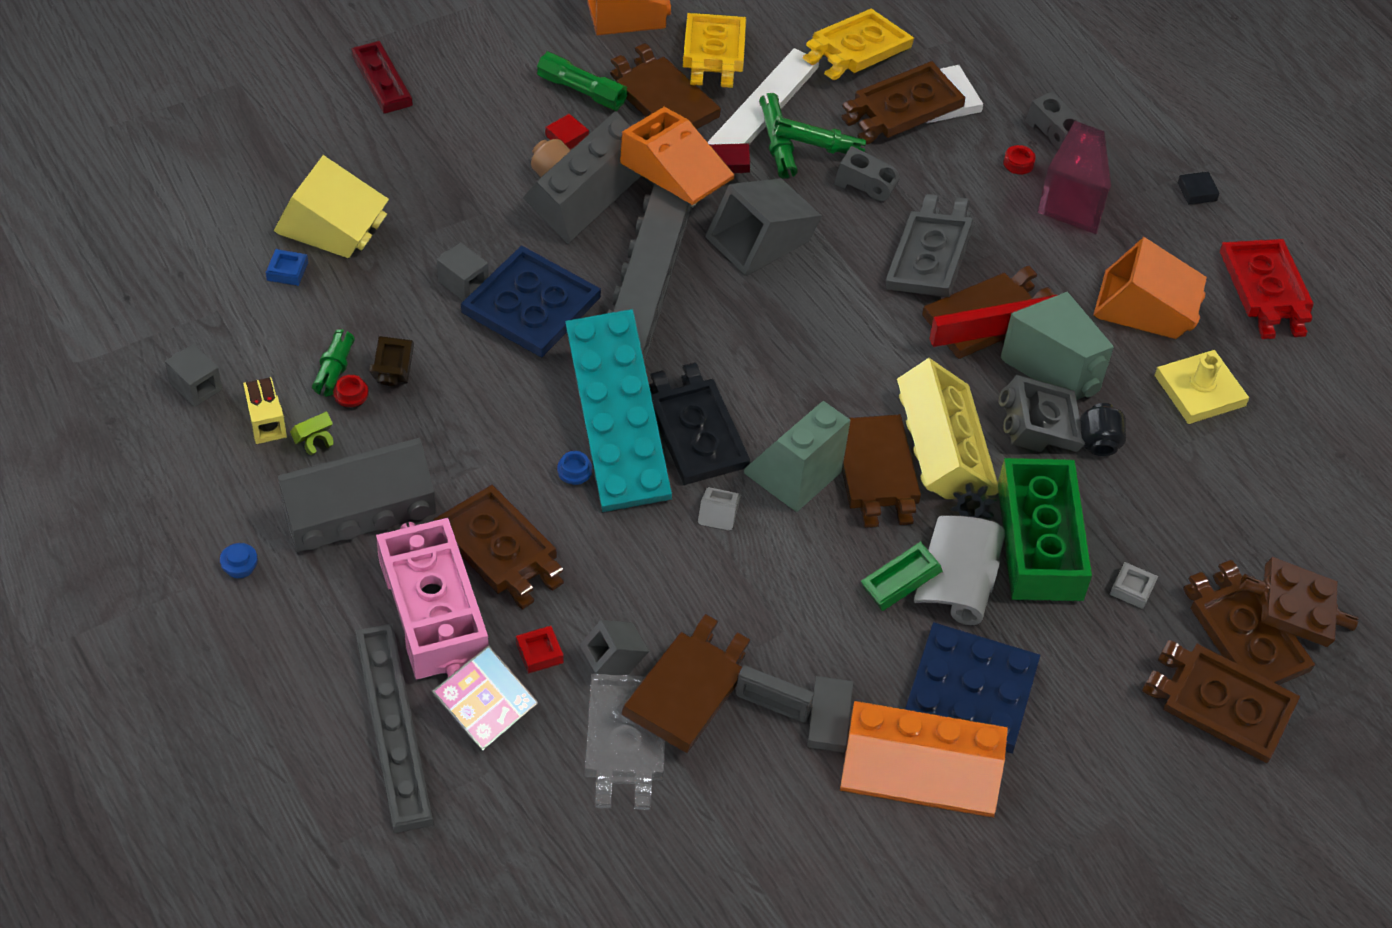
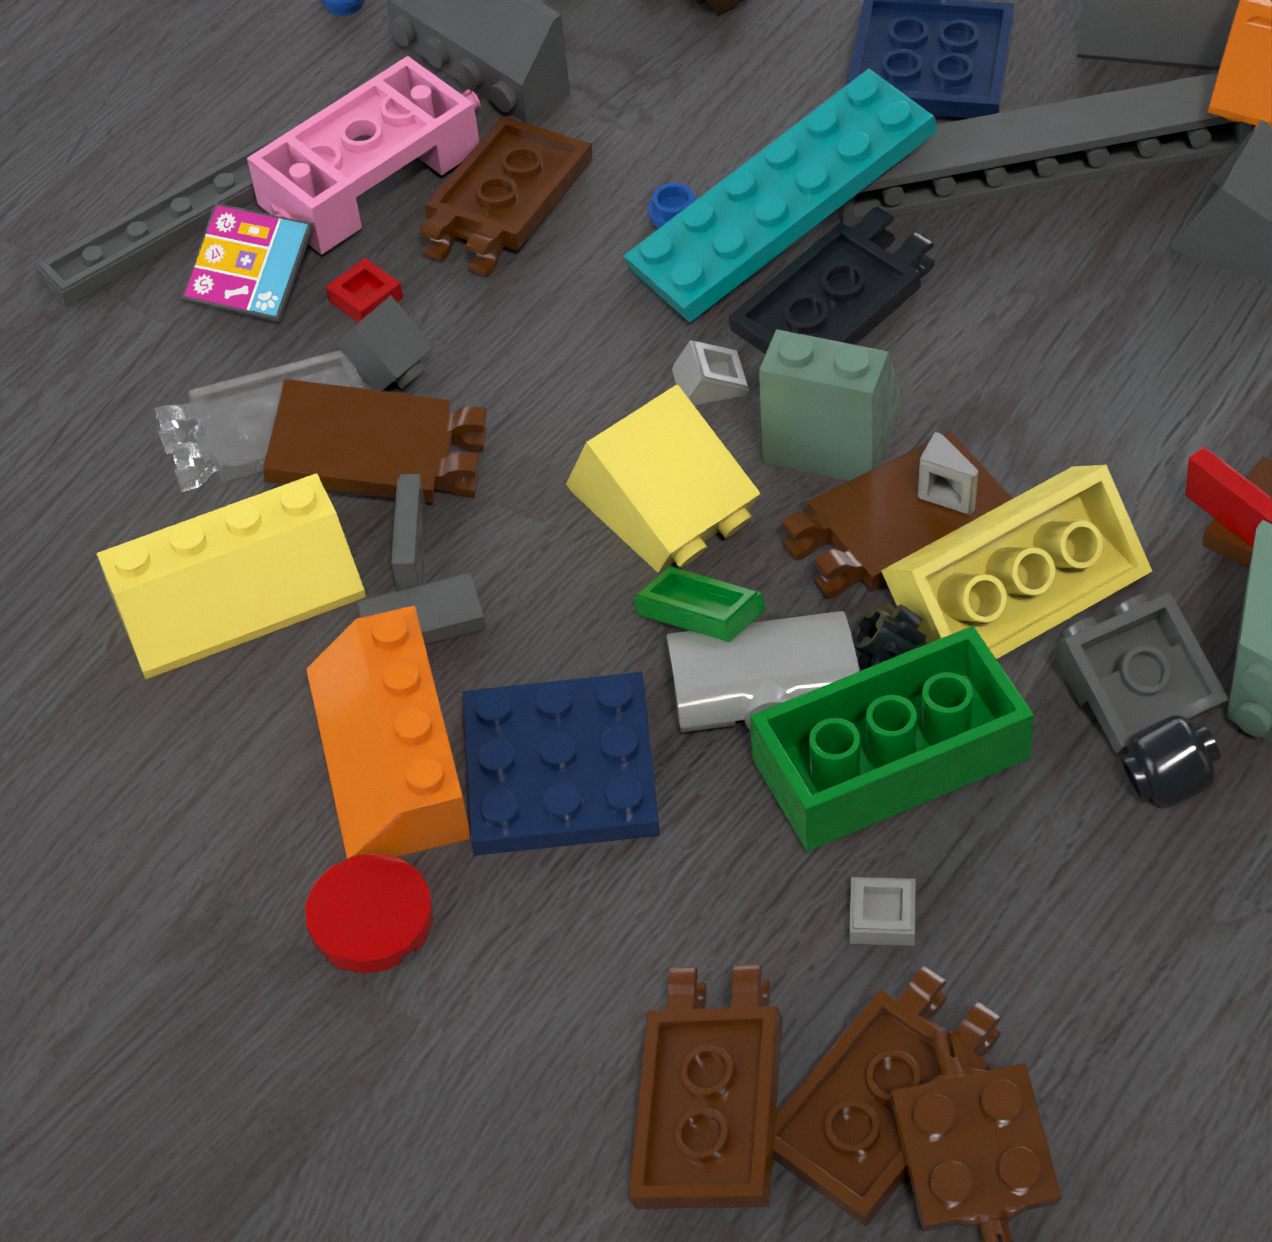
camera: 75 degrees right, 0 degrees up
(756, 799) = (231, 575): none -> light yellow slope
(804, 556) = (664, 482): none -> light yellow slope
(880, 428) = (947, 476): none -> light grey slope
(1036, 815) = (369, 912): none -> red tile

